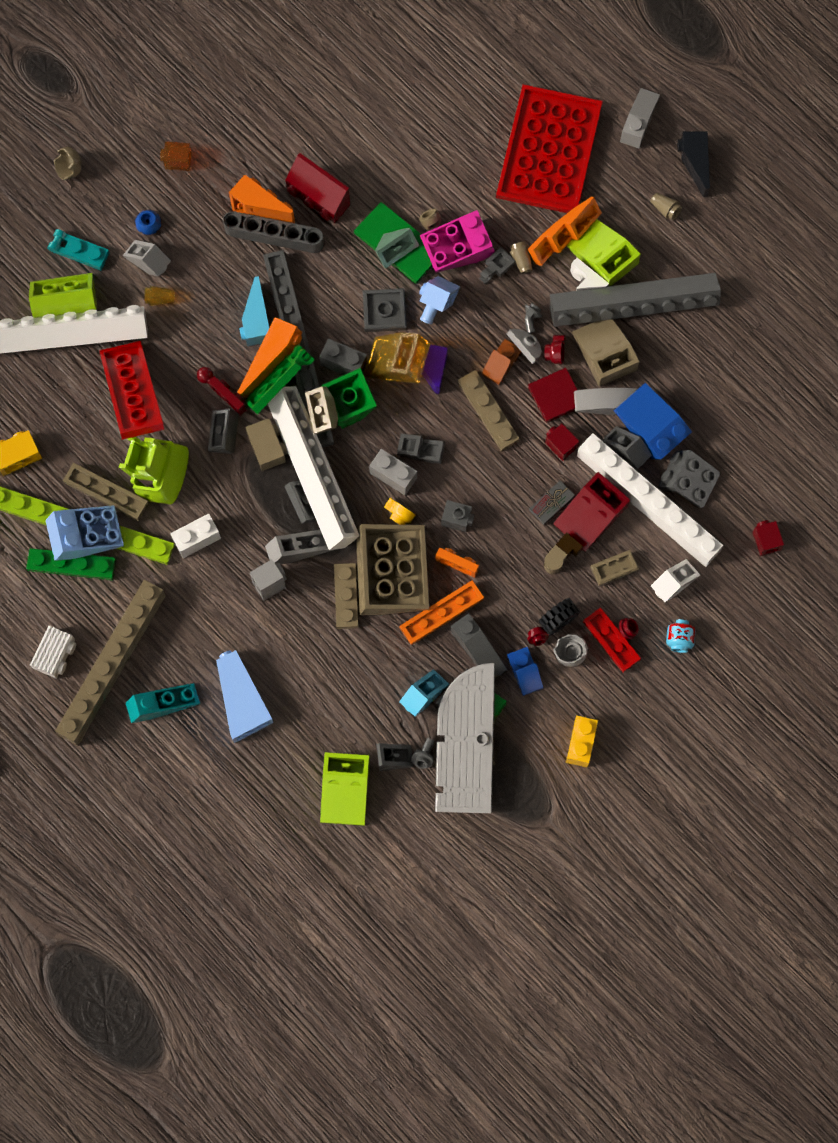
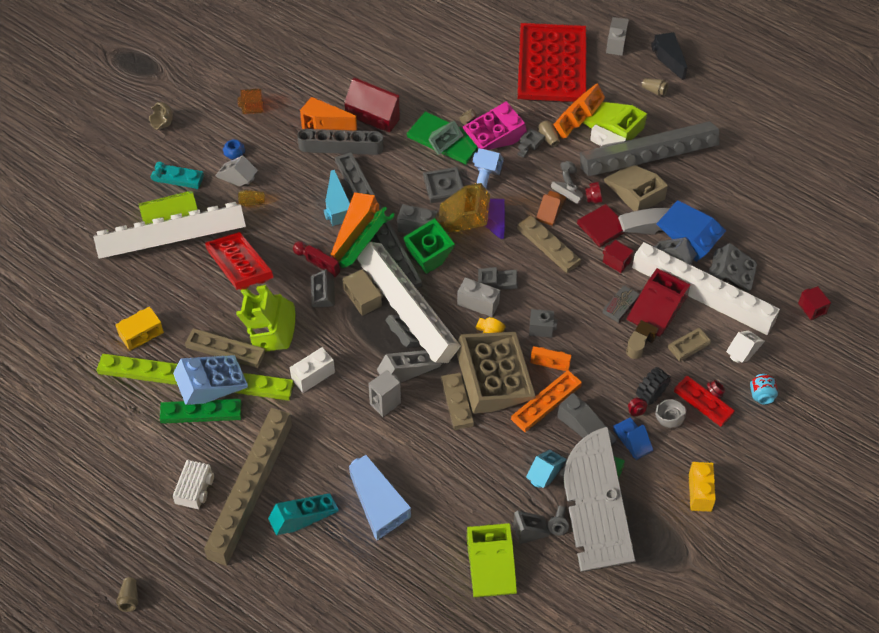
camera: 10 degrees left, 20 degrees down
(321, 409) = (406, 253): dark tan slope -> none

